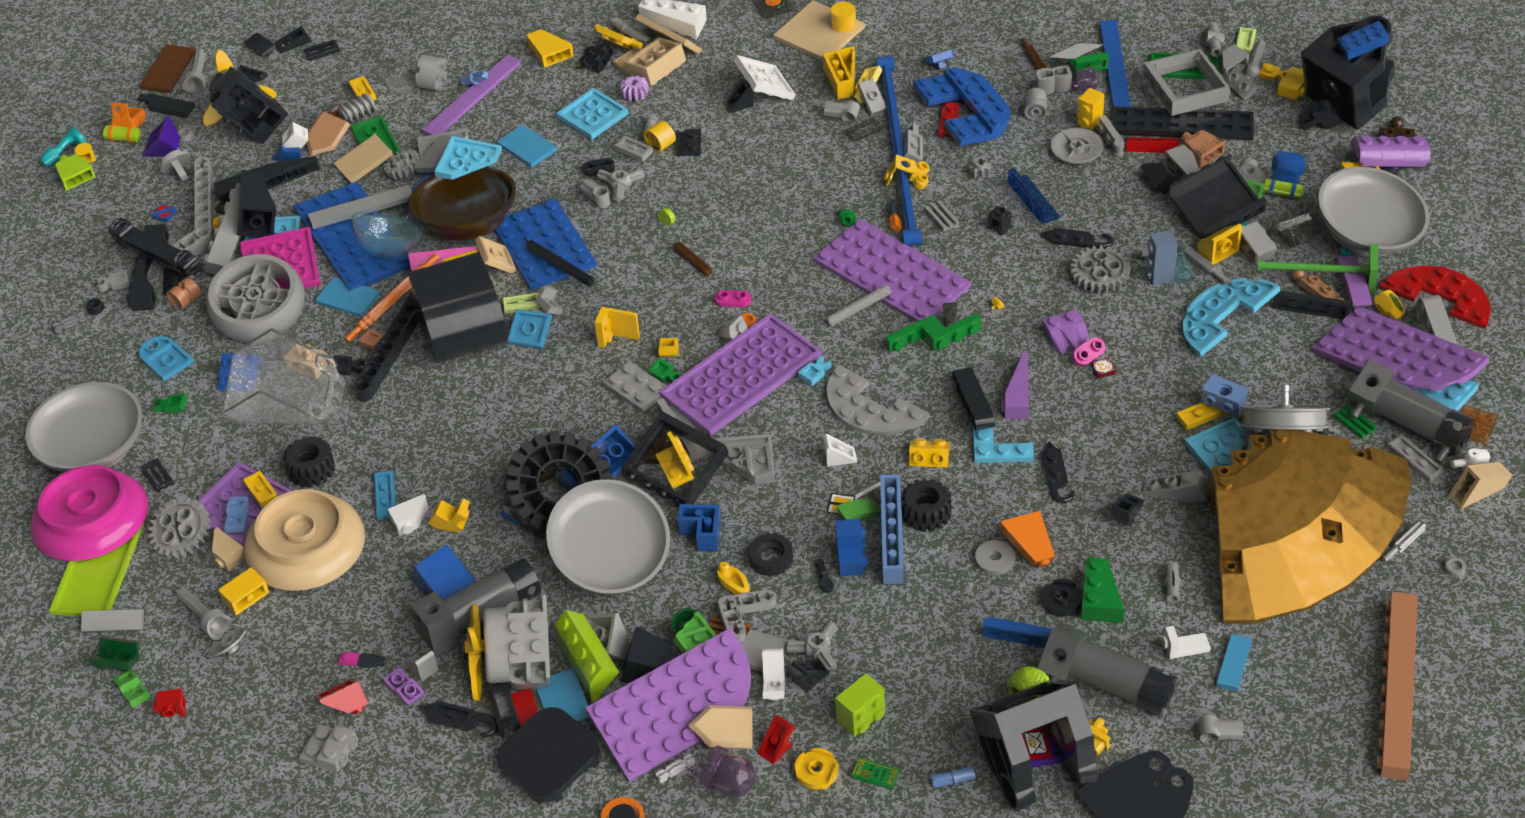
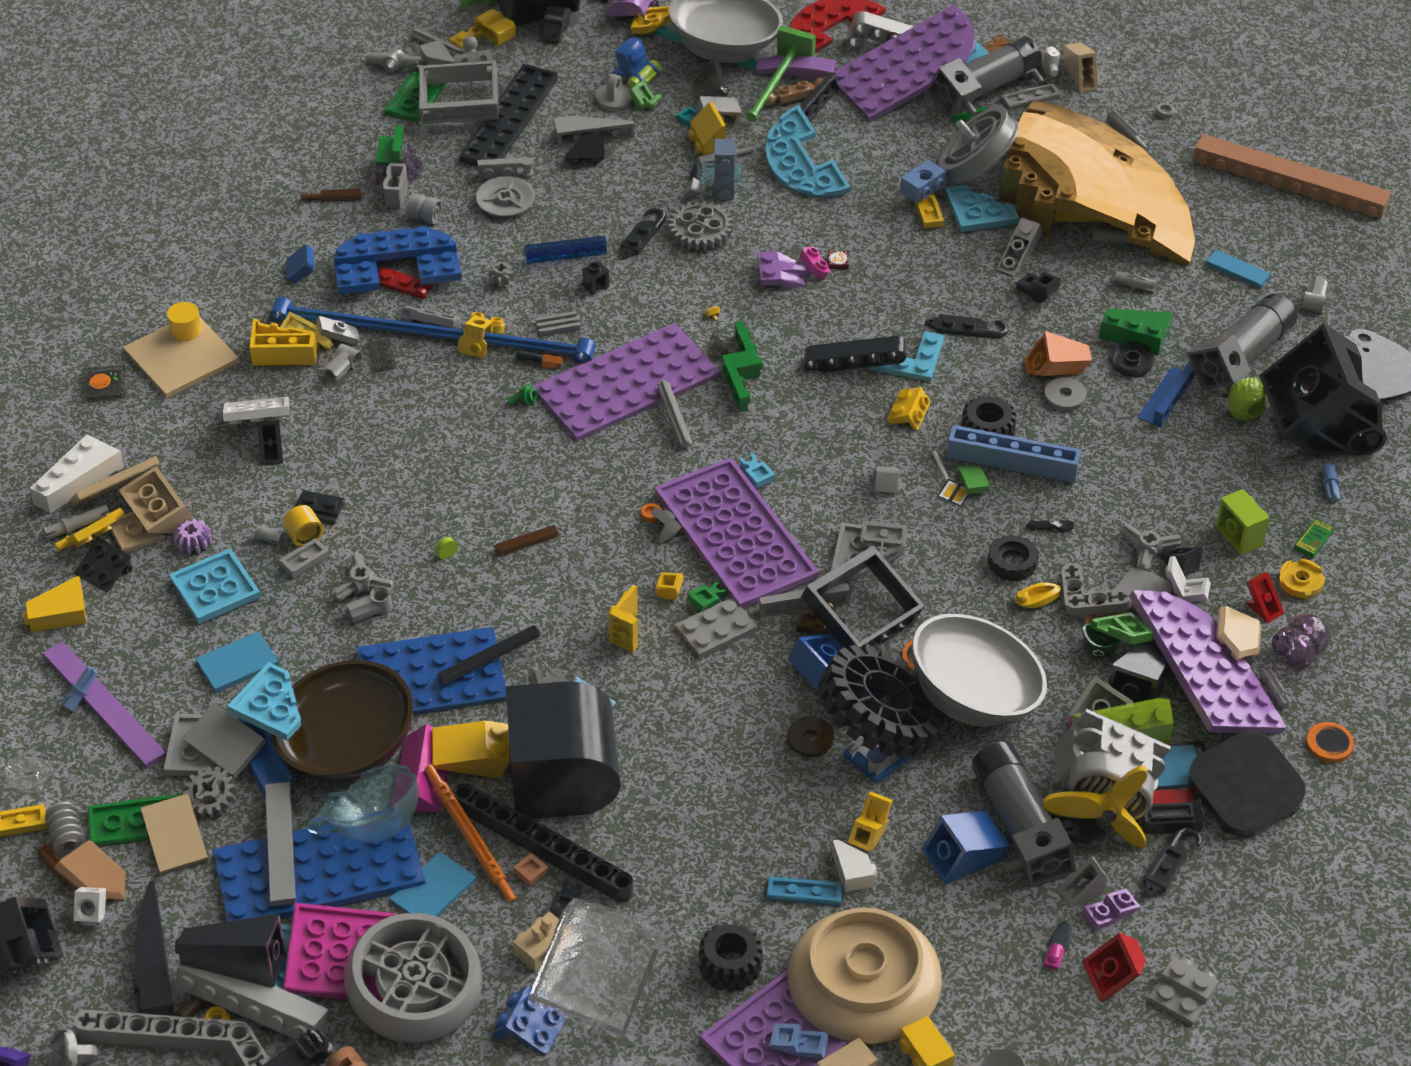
camera: 80 degrees left, 0 degrees up
(260, 488) = (767, 1008): yellow plate -> none
(287, 154) = (118, 919): blue slope -> none
(431, 72) = (44, 730): light grey brick -> none
(495, 254) = (442, 715): tan tile -> none
(596, 165) = (314, 597): black beam -> none
(675, 463) = (882, 589): yellow bracket -> none
(703, 522) = (964, 597): blue brick -> none
(732, 298) = (610, 516): dark pink plate -> none
(850, 547) = (1031, 493): blue brick -> none
(865, 414) = (828, 450): light grey plate -> none
(1017, 396) = (848, 321): medium lavender slope -> none
(1076, 51) = (355, 158): white sticker -> none
(1090, 108) = (462, 167): yellow brick -> none
(1116, 68) = (370, 138): blue tile -> none
(1150, 145) = (532, 142): red slope -> none
(1184, 645) = (1212, 292): white bracket -> none
(1204, 146) = (553, 107): nougat torso -> none
(1215, 198) = (652, 117): black panel -> none
(1246, 39) = (404, 43): yellowish green tile -> none
(1389, 304) = (839, 54): yellow rock -> none

